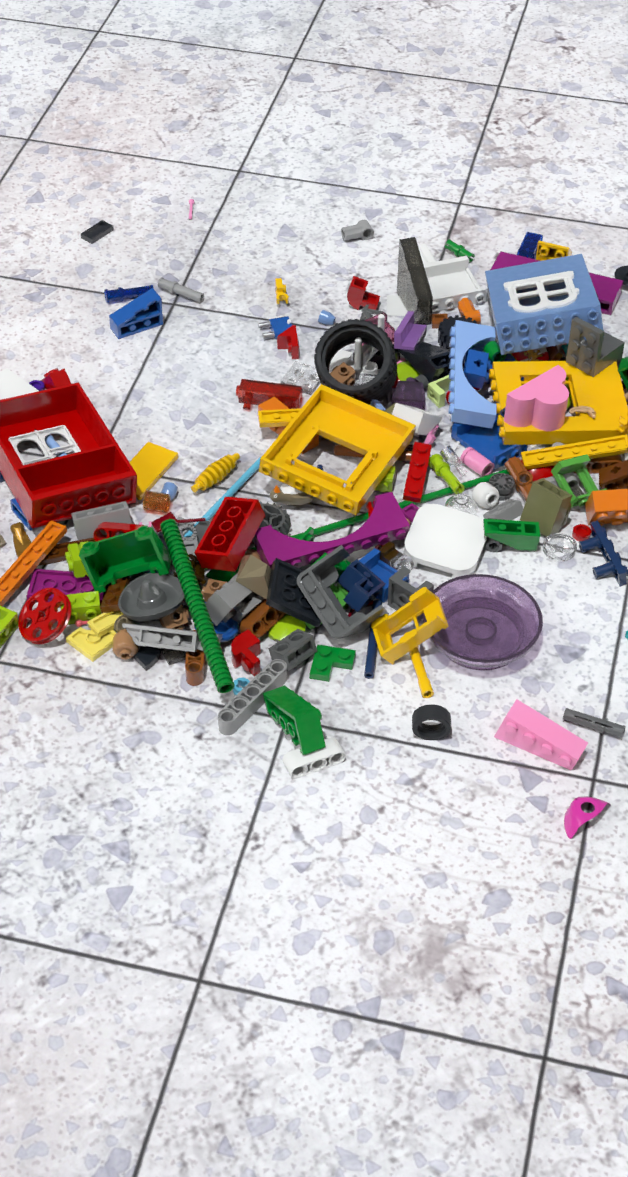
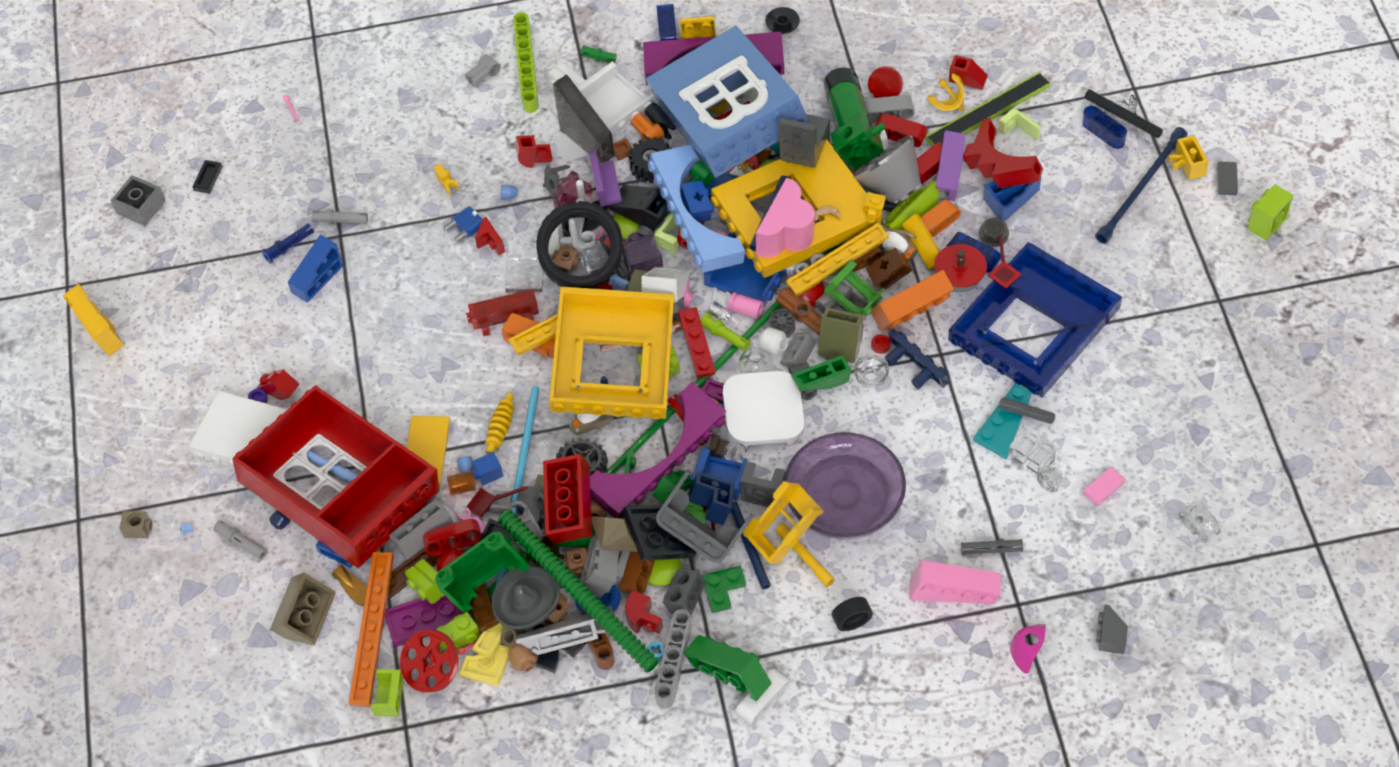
camera: 20 degrees left, 10 degrees up
(32, 226) = (138, 200): none -> flat silver brick
(184, 500) = (487, 469): none -> blue brick
(398, 230) = (525, 62): none -> lime beam
(482, 304) = (658, 117): none -> black piece

